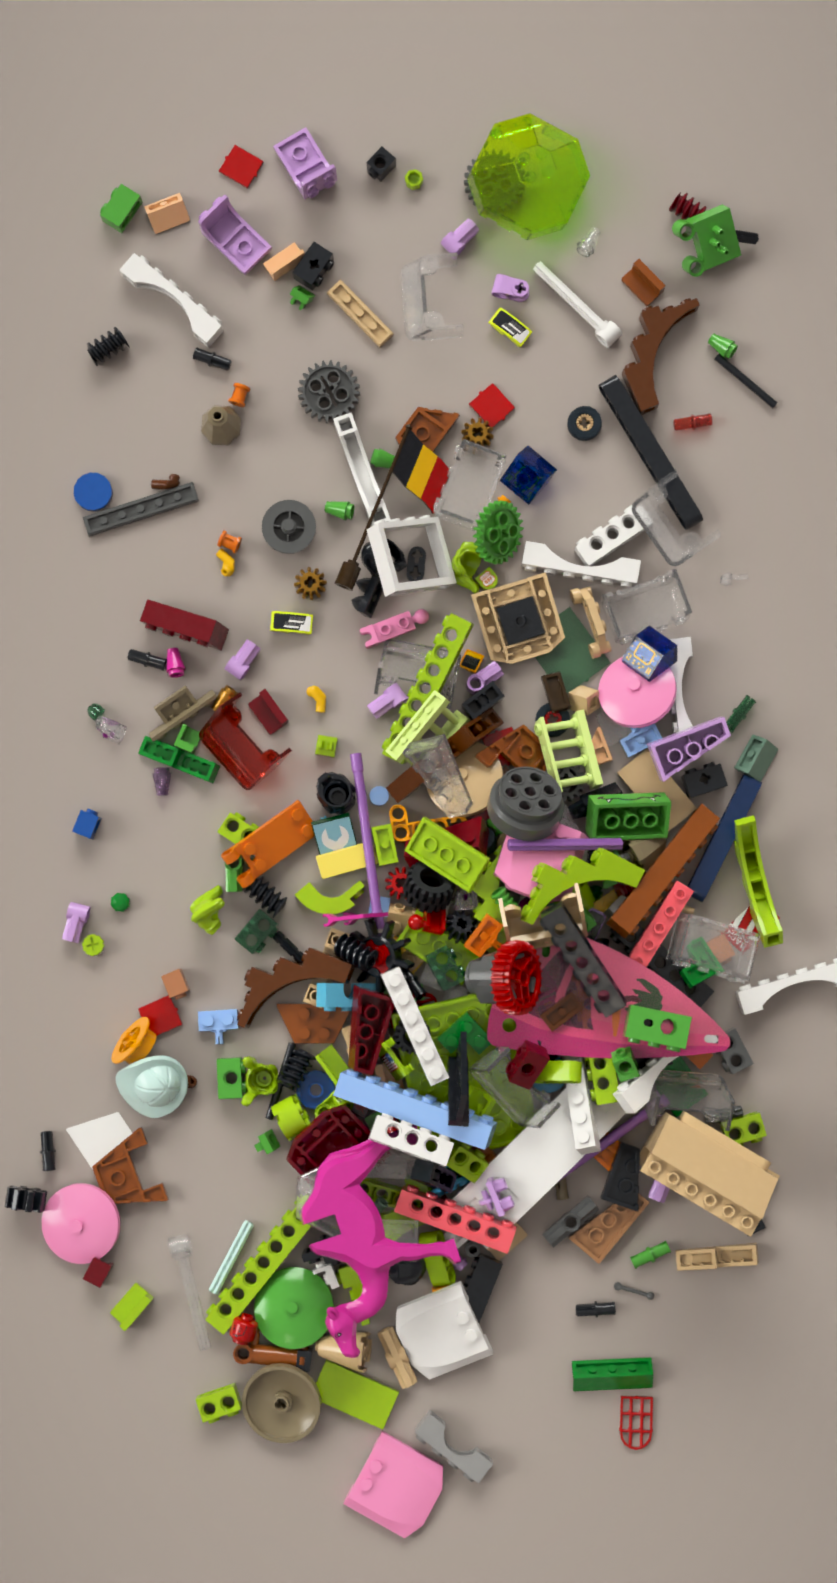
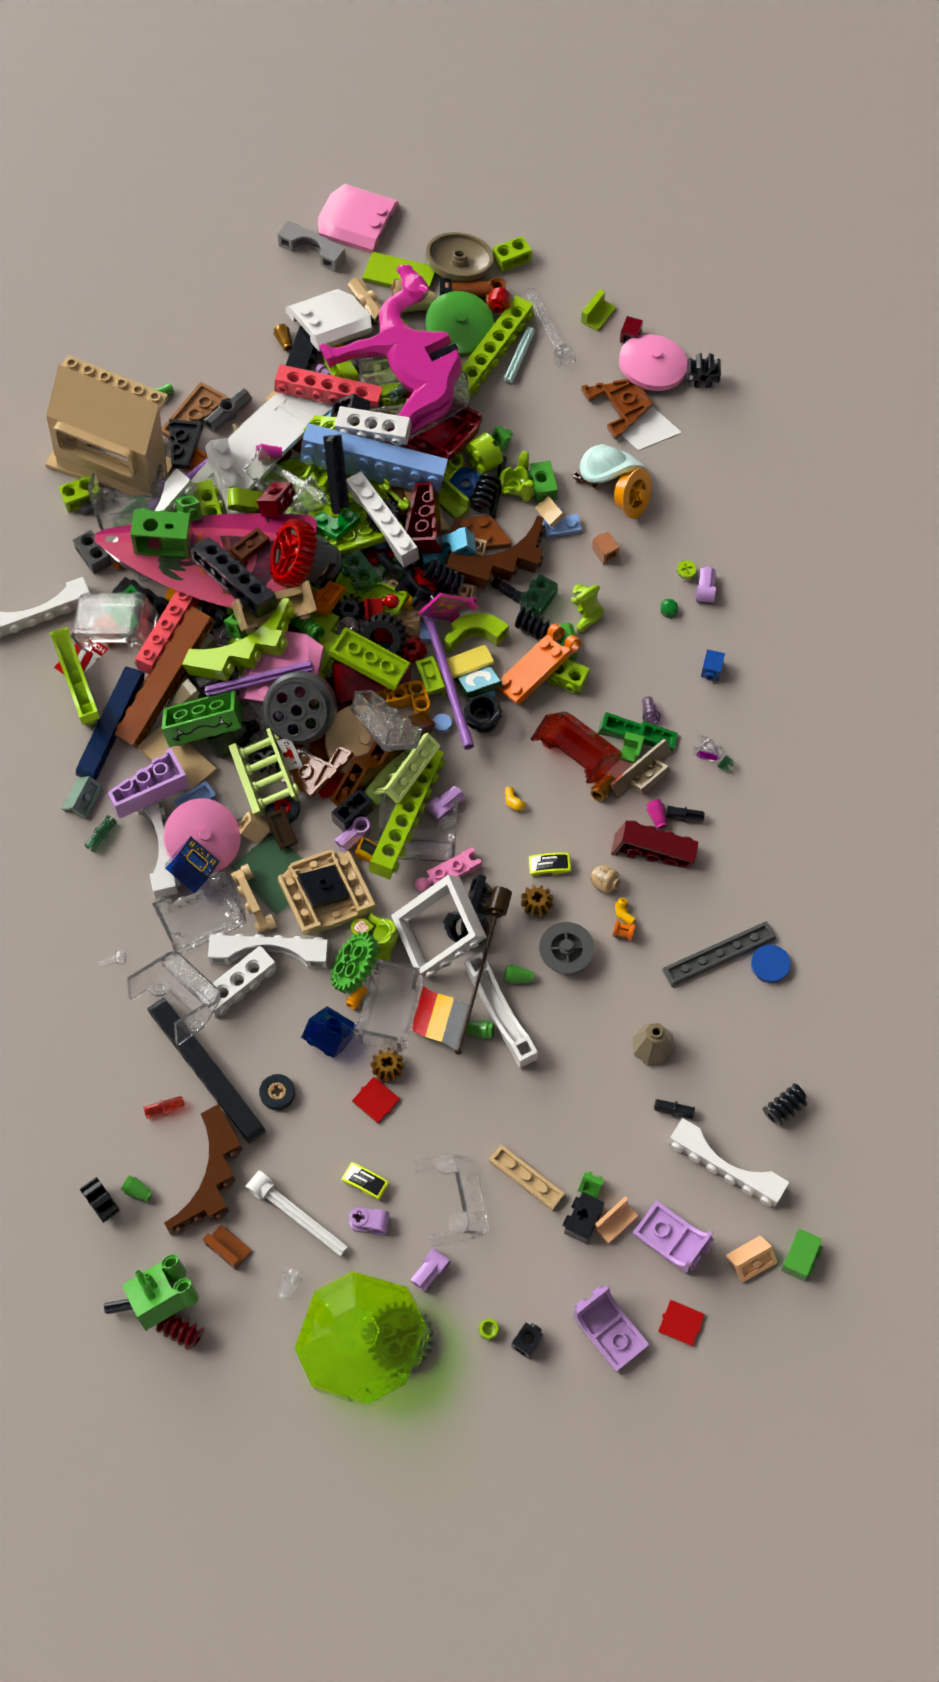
camera: 170 degrees right, 20 degrees down
(47, 1151) = (693, 411): black axle -> none
(162, 1015) = (615, 523): red piece -> none
(166, 484) = (697, 978): reddish brown arm -> none
(229, 1035) = (550, 511): none -> tan slope
(239, 395) = (639, 1074): orange bush -> none
(239, 597) = (605, 878): none -> tan head
(240, 663) = (592, 822): lavender piece -> none
(268, 712) = (558, 783): dark red panel -> none
(326, 746) = (498, 760): lime tile -> none
(345, 384) = (562, 1080): dark grey gear -> none
(411, 563) = (438, 933): black beam -> none
(429, 426) = (440, 1065): dark orange wing -> none
(498, 1317) = (283, 336): none -> pearl gold cone
(501, 1204) = (296, 404): lavender hips -> none
(531, 1135) = (273, 451): none -> dark pink cone
(539, 763) = (289, 754): none -> white sticker
(595, 1309) = (200, 352): black axle -> none
(601, 748) = (234, 788): light nougat tile -> none
(612, 1374) = (182, 310): green panel -> none
(641, 1413) = (155, 287): red window -> none
(650, 1295) = (183, 372): dark grey hinge -> none
(715, 781) = (122, 767): black brick -> none
(746, 381) = (109, 1157): black bar -> none
(757, 334) = (99, 1199): none -> black gear

